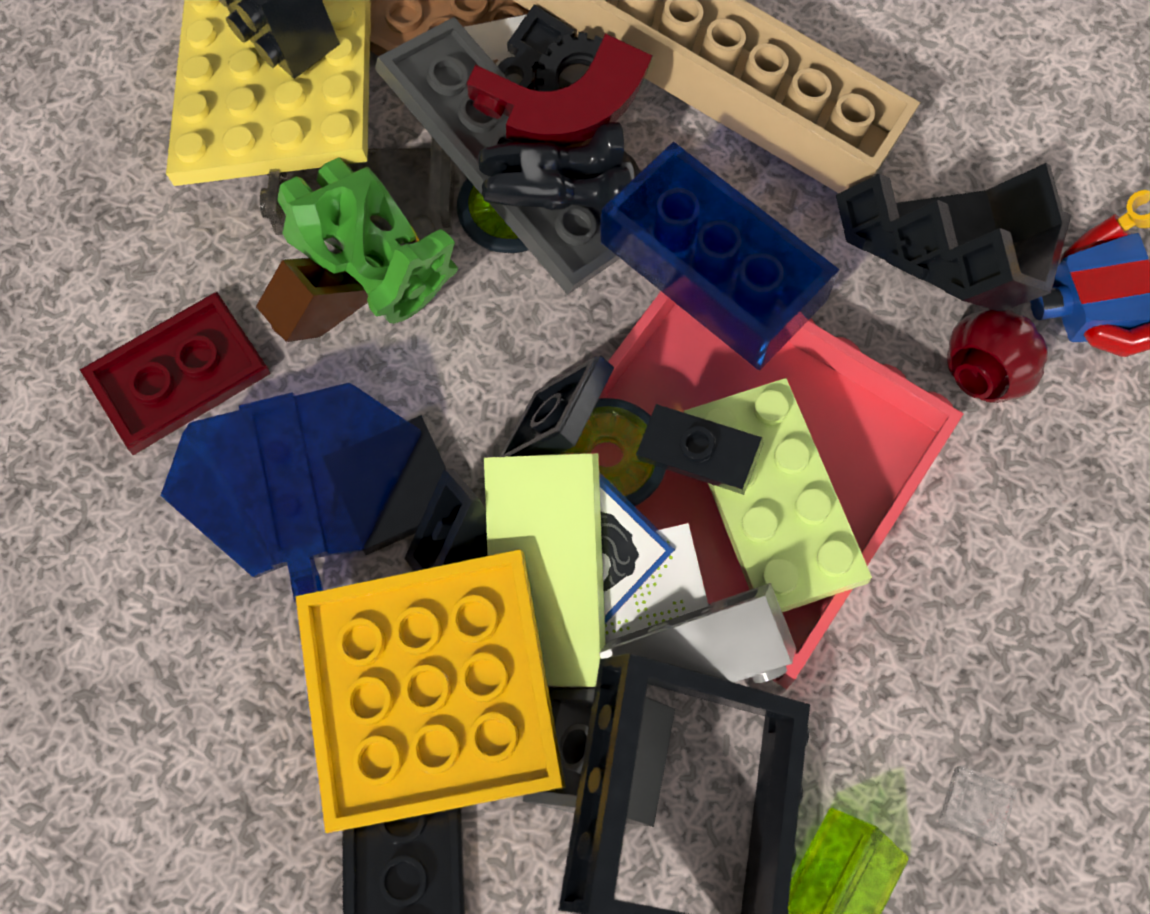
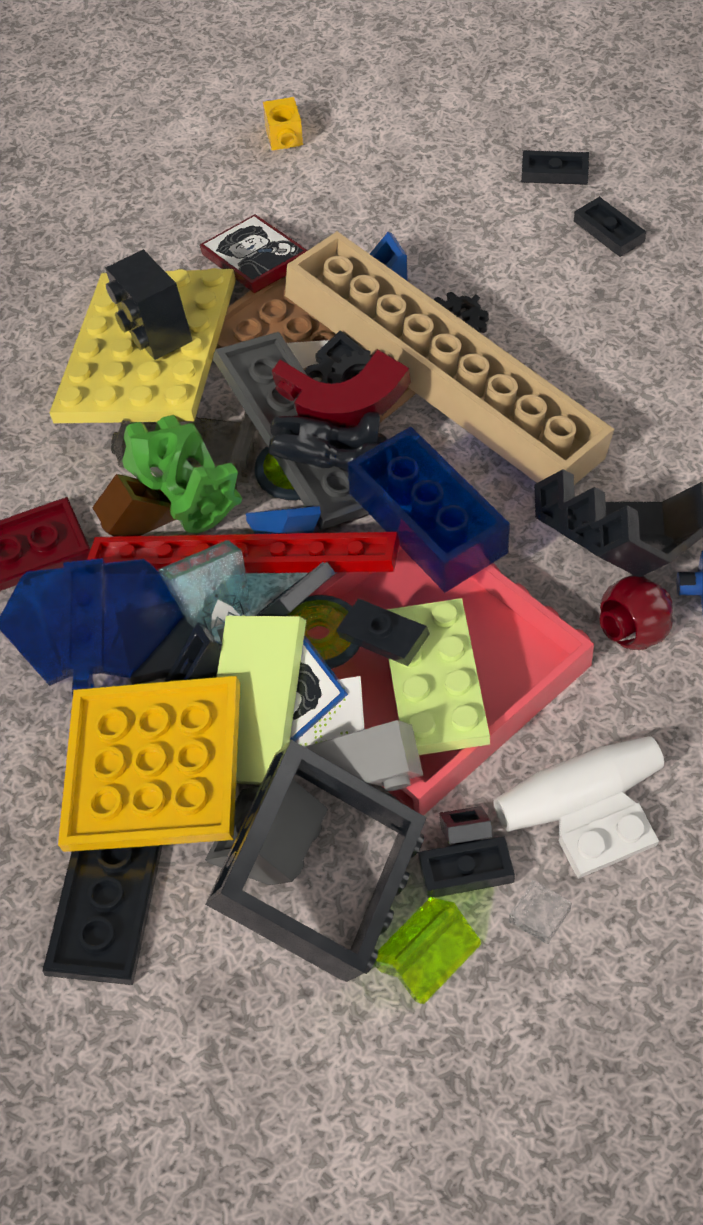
camera: 15 degrees right, 15 degrees down
(449, 410) = (210, 586): none -> clear light blue torso
(482, 348) = (262, 551): none -> red plate
(518, 298) = (284, 520): none -> blue slope
(855, 697) = (465, 825): none -> black plate
(868, 757) = (466, 867): none -> black plate
(996, 629) = (588, 799): none -> white plate

